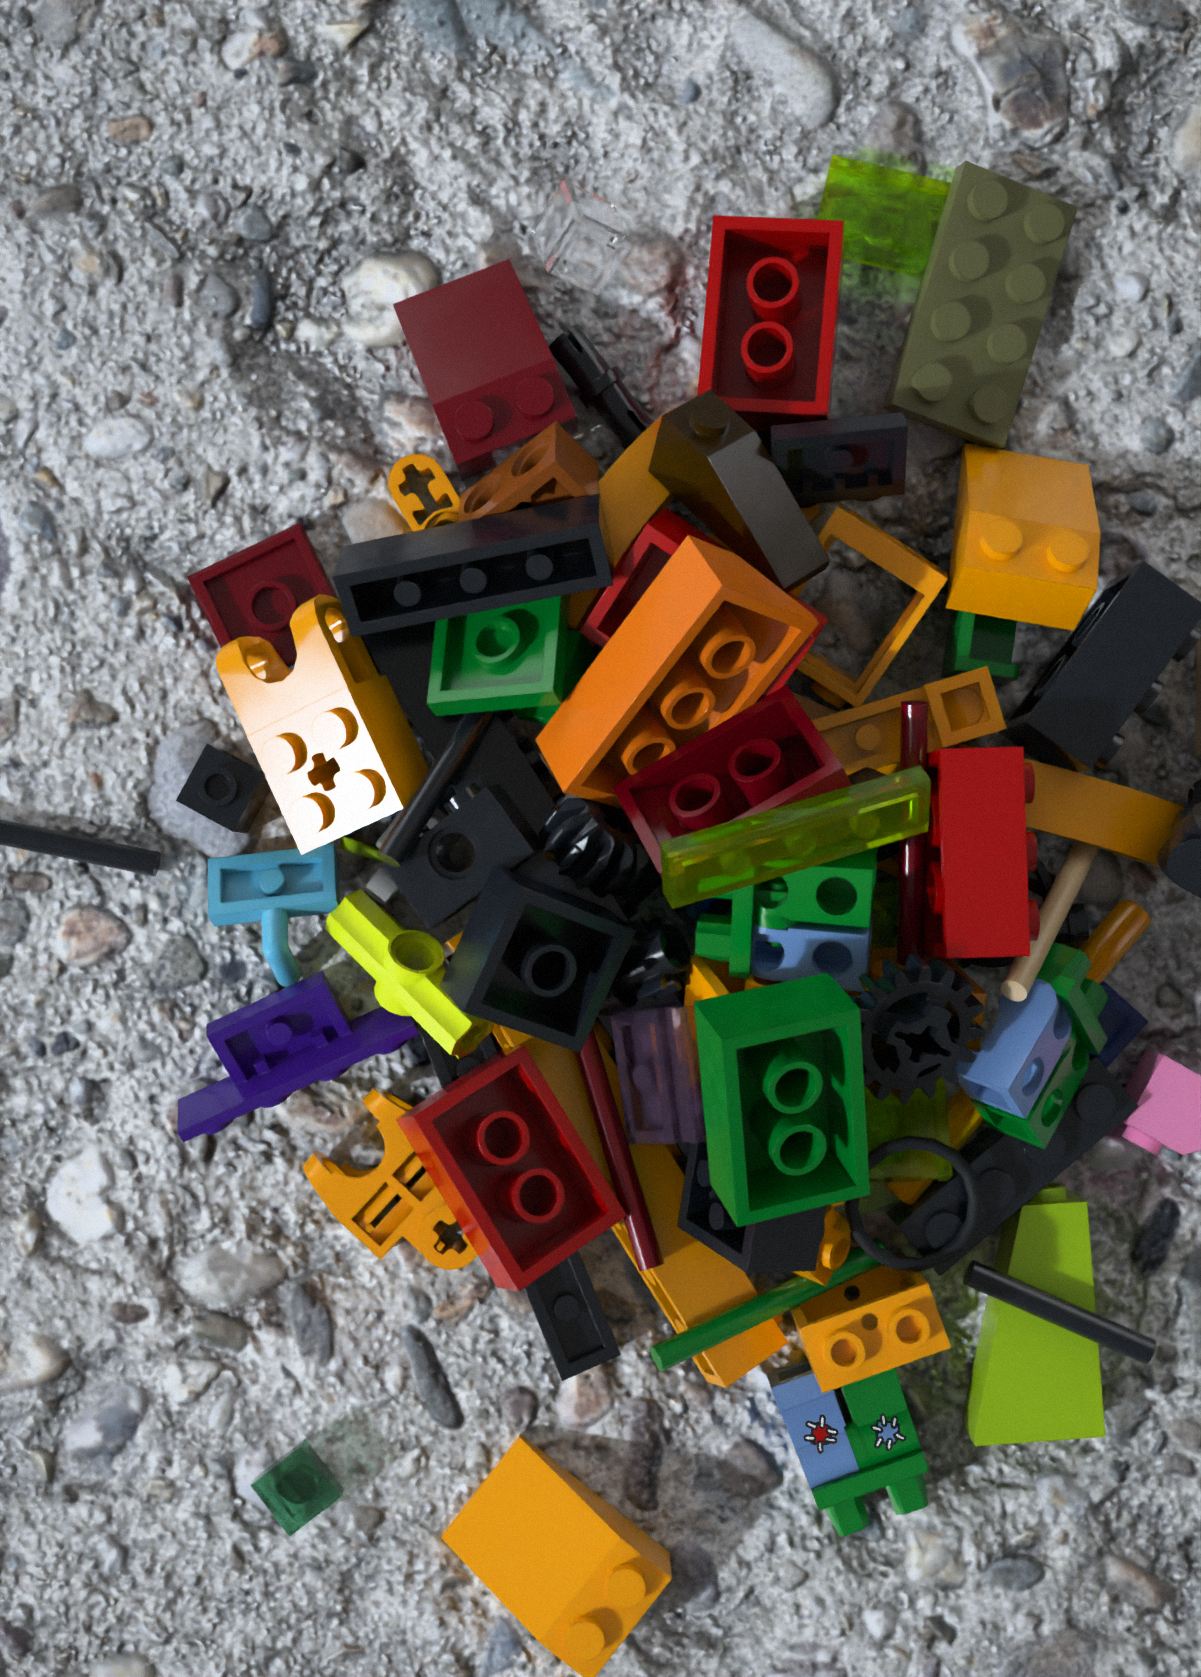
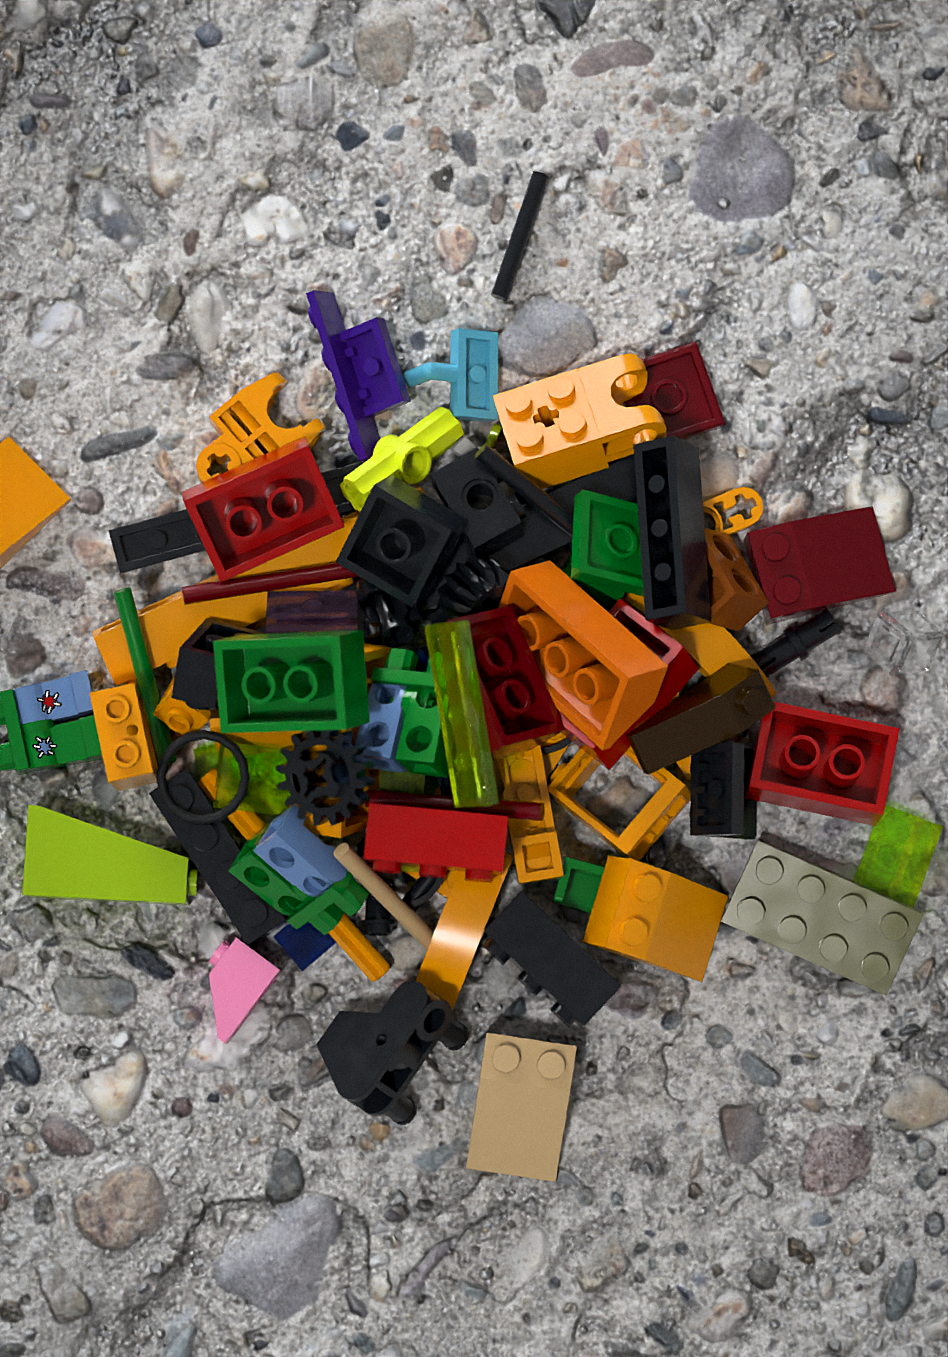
camera: 90 degrees right, 5 degrees down
(225, 789) = (544, 350): black brick -> none
(297, 1487) = (58, 342): clear green plate -> none
(1059, 1312) = (113, 871): black bar -> none

